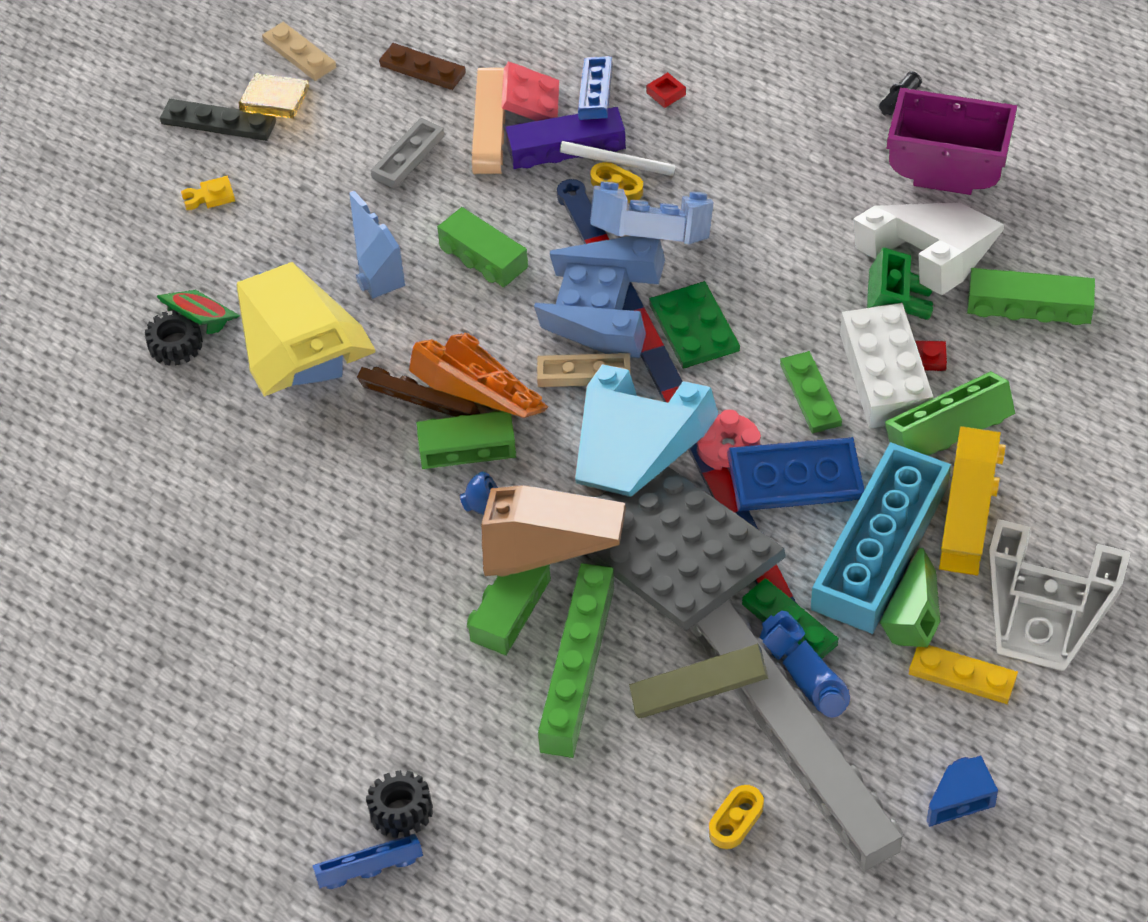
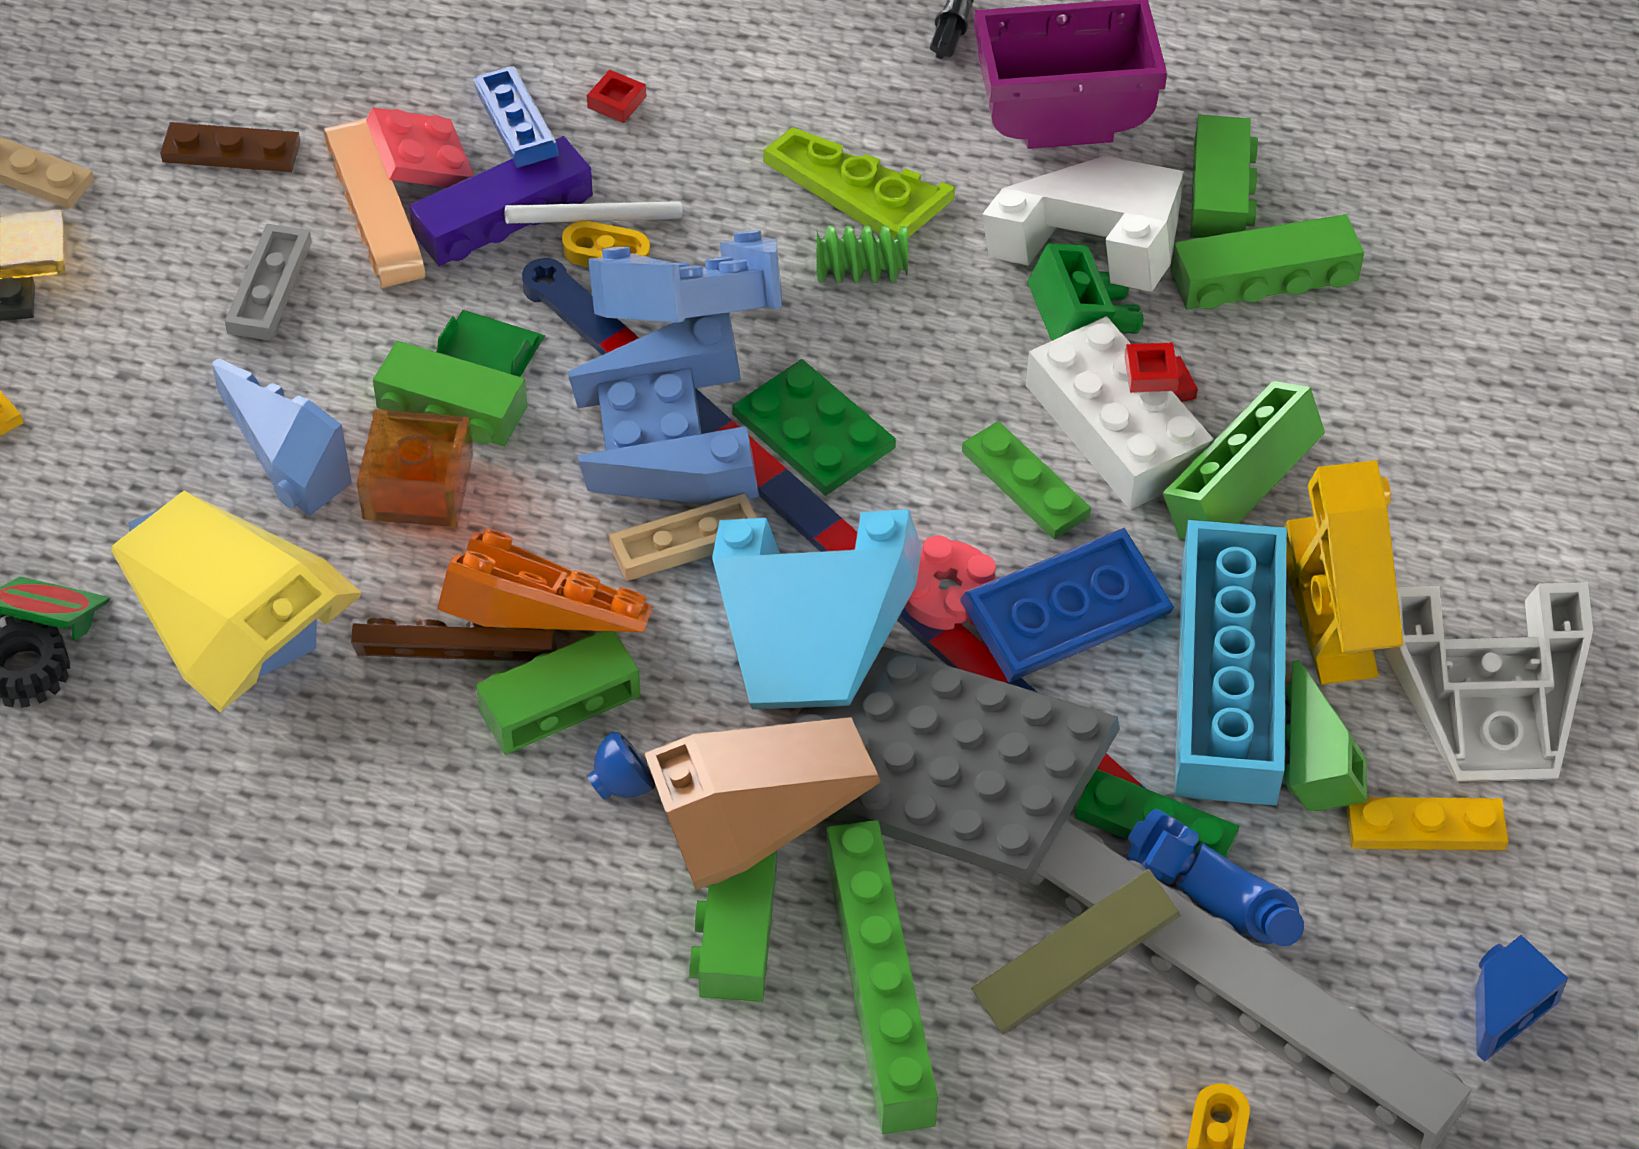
camera: 25 degrees left, 0 degrees up
(440, 285) = (415, 468): none -> clear orange brick
(520, 223) = (489, 342): none -> green piece
(769, 226) = (862, 254): none -> bright green piece
(792, 183) = (857, 183): none -> lime wing
(909, 341) = (1151, 367): none -> red plate
(1028, 233) = (1223, 176): none -> bright green brick

